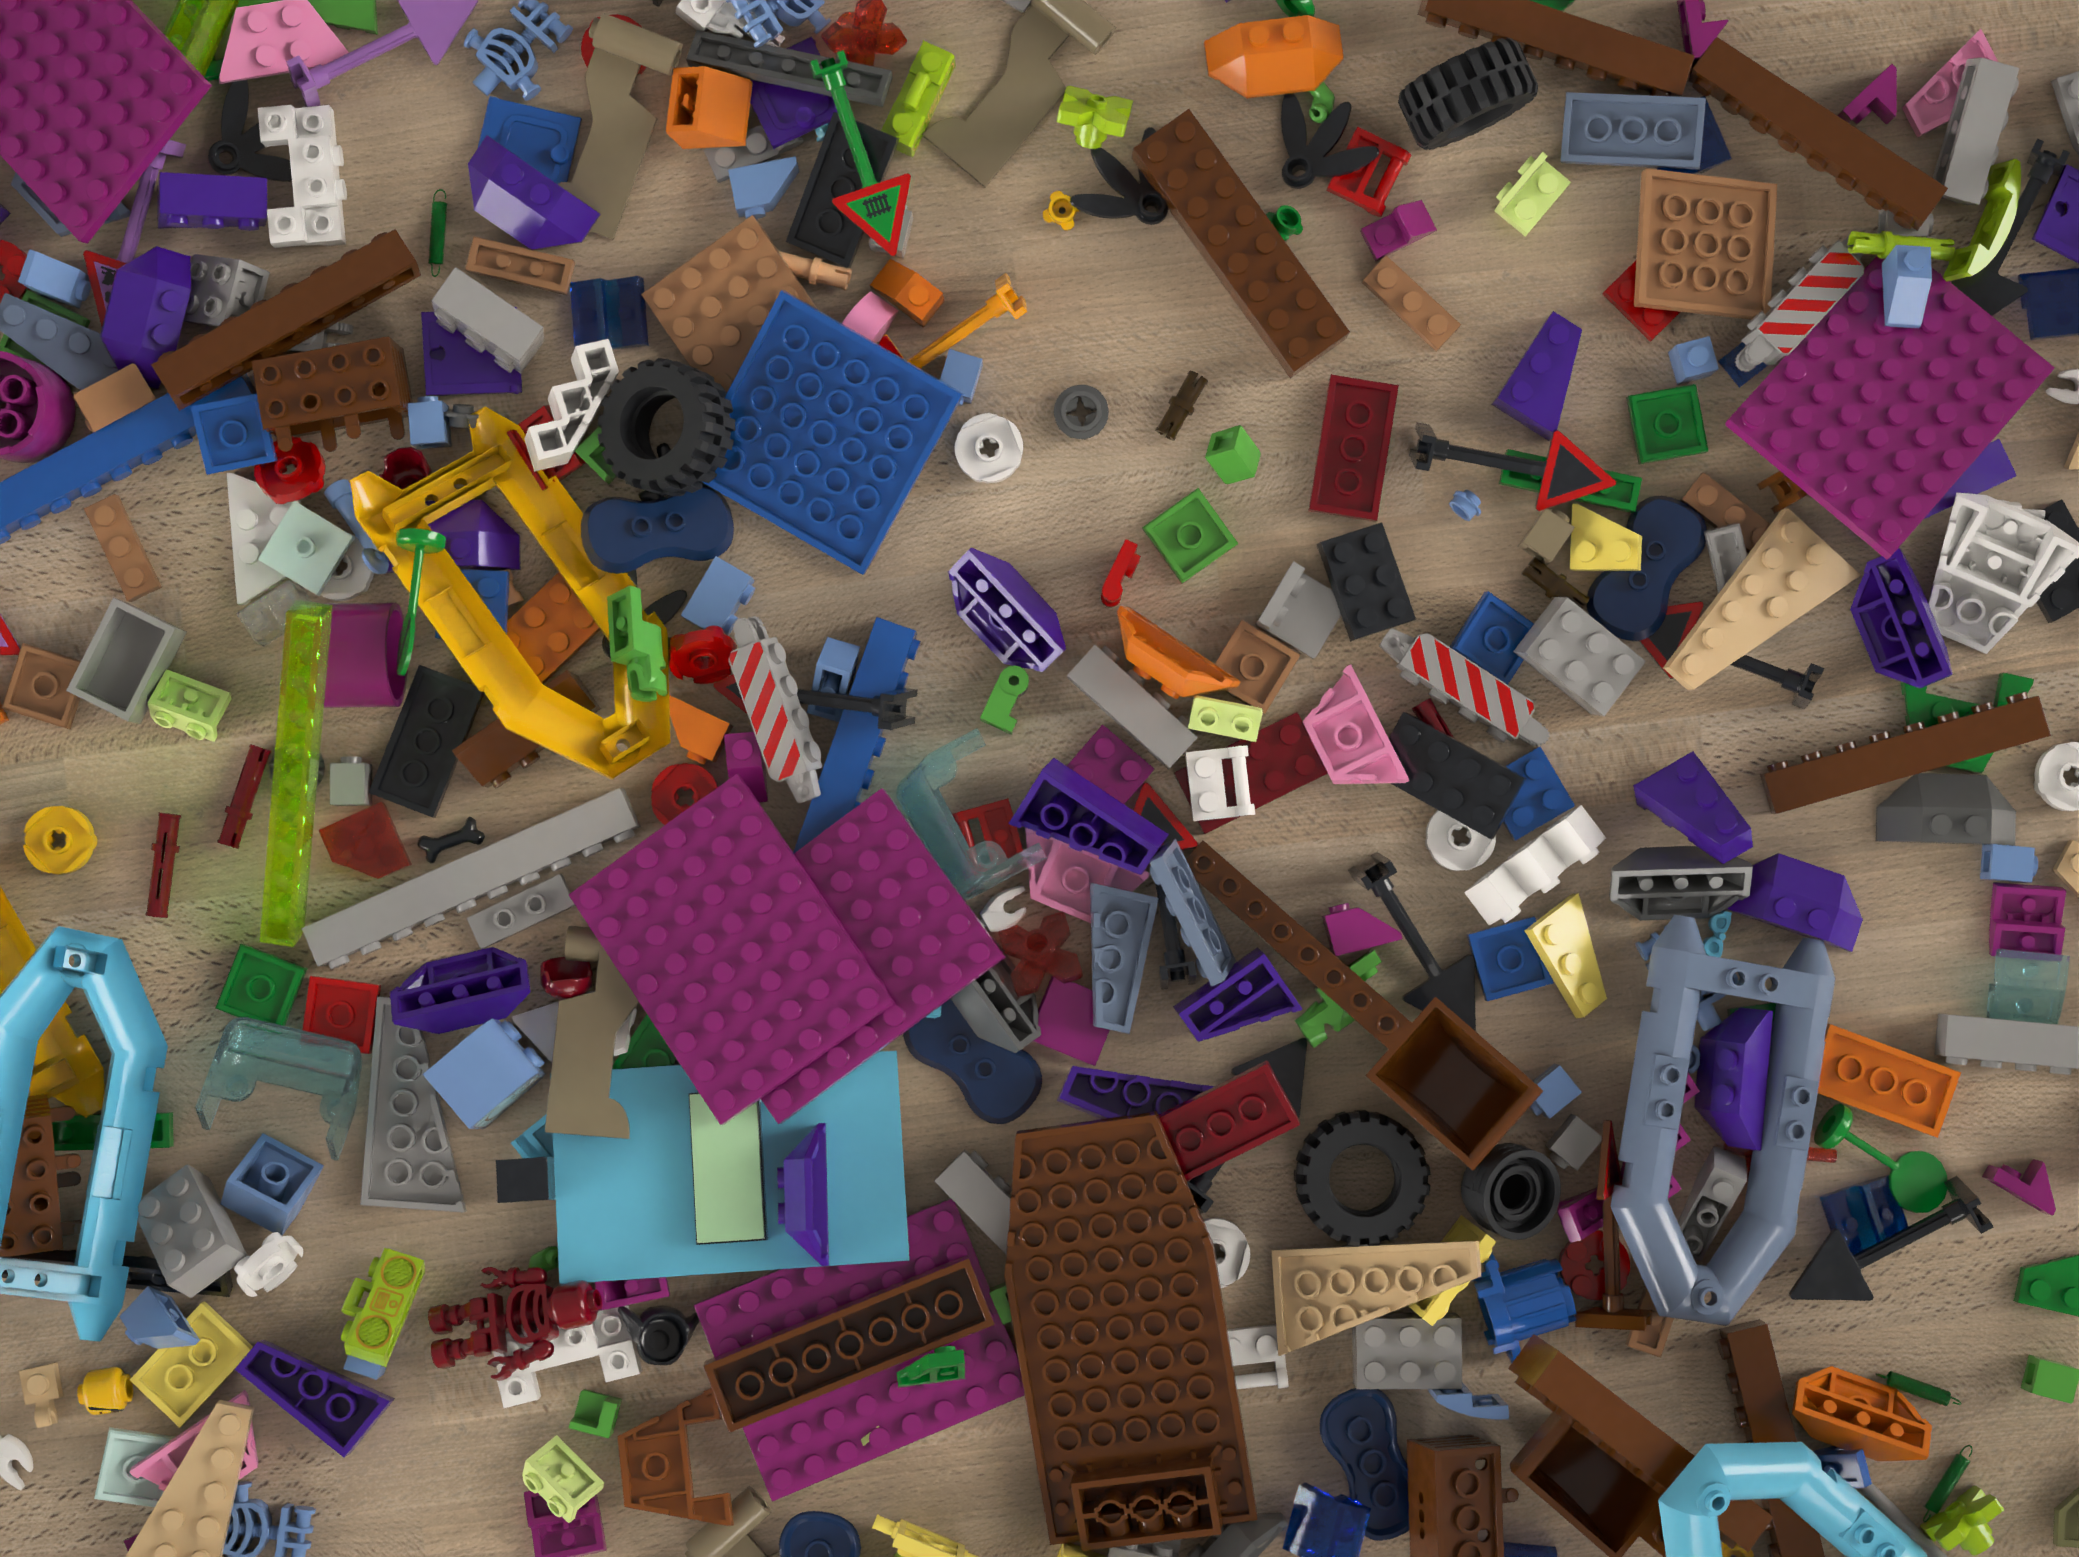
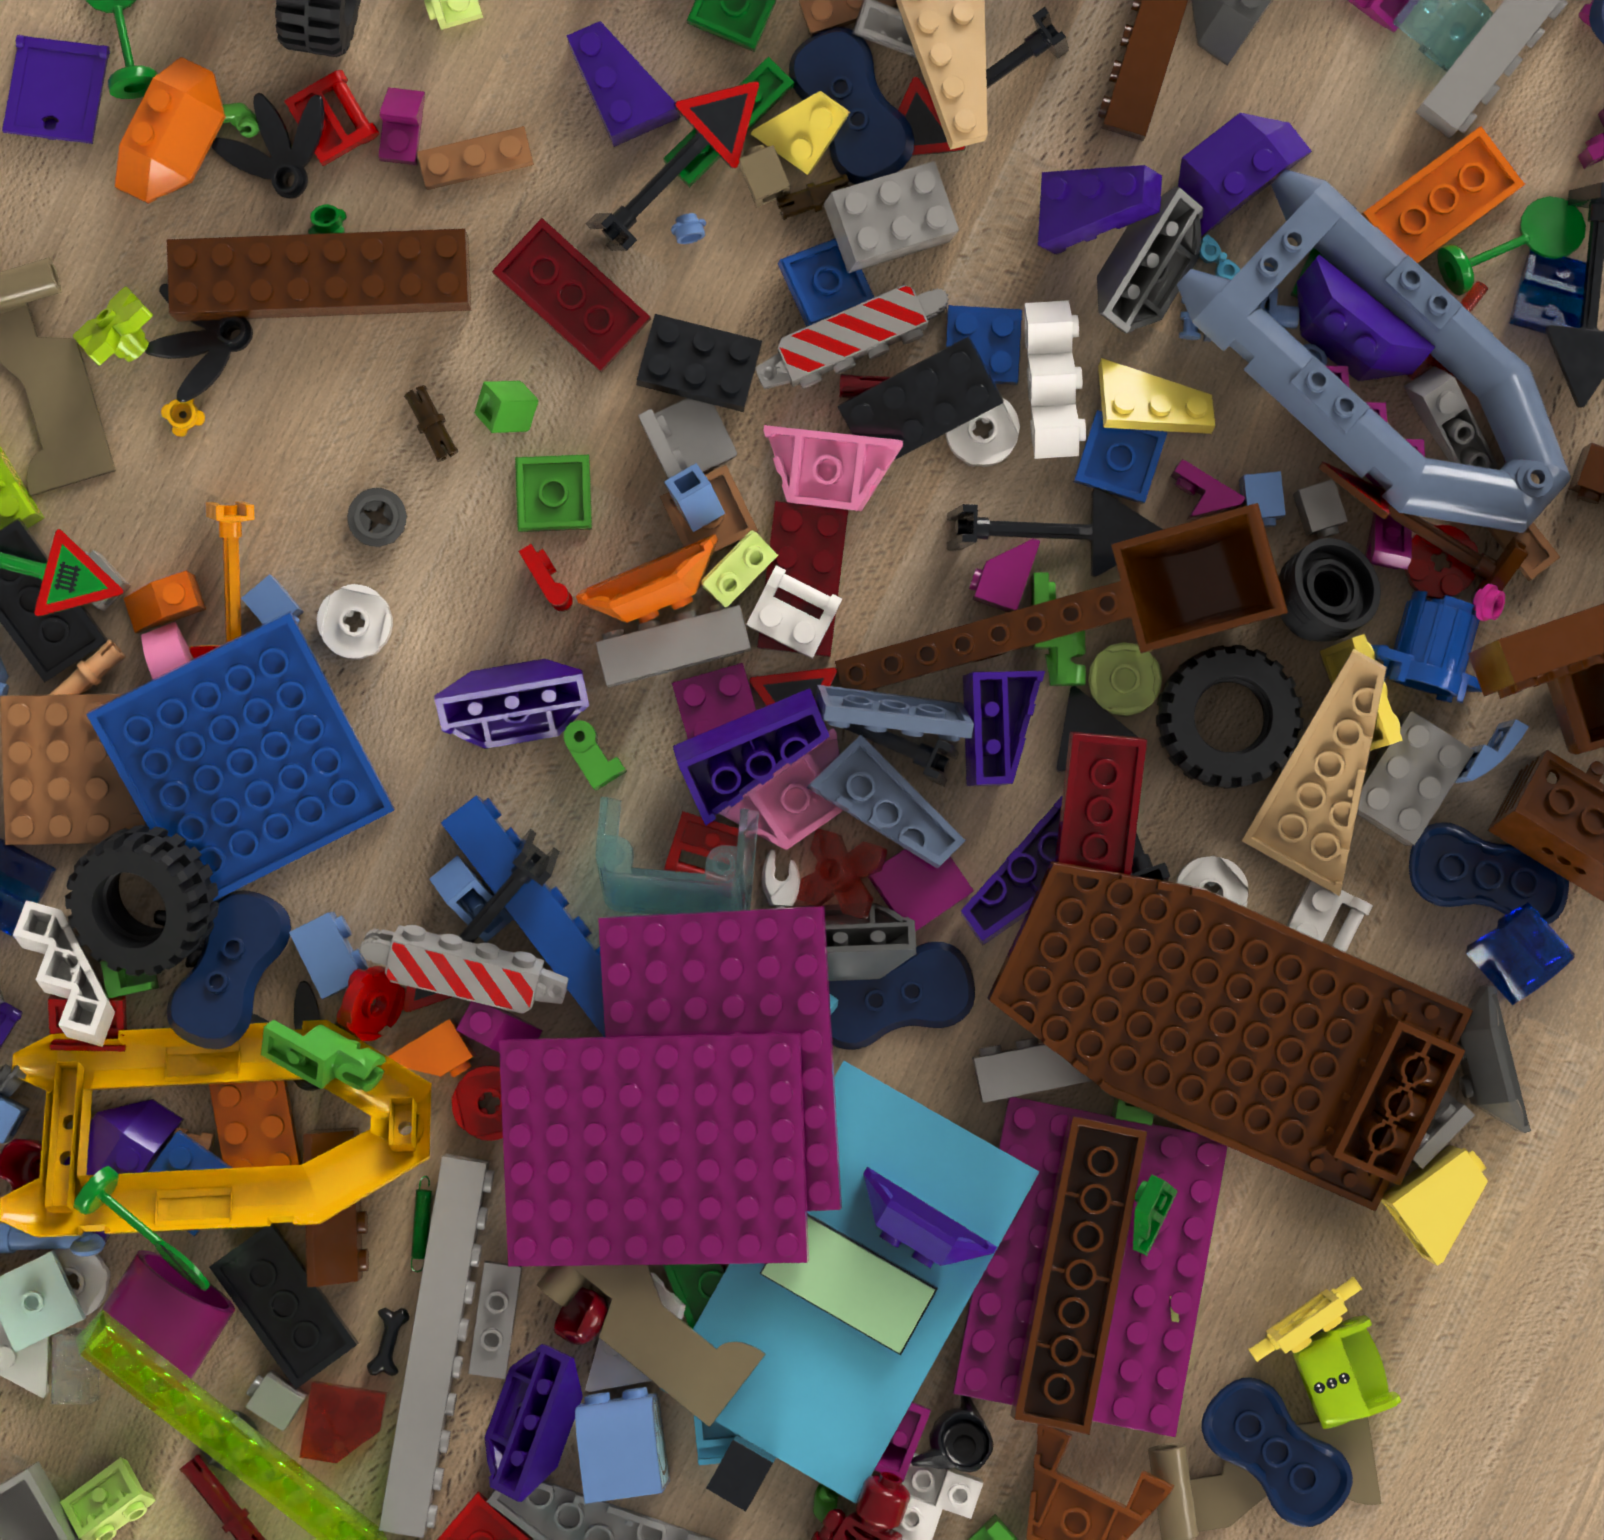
camera: 65 degrees left, 0 degrees up
(558, 805) = (421, 1223): none -> green piece
(1258, 647) = (694, 497): none -> medium blue brick
(1337, 1076) = (1114, 675): none -> yellowish green tile
(1529, 1051) = (1214, 494): none -> magenta slope
(1586, 1324) = (1489, 602): none -> dark pink plate

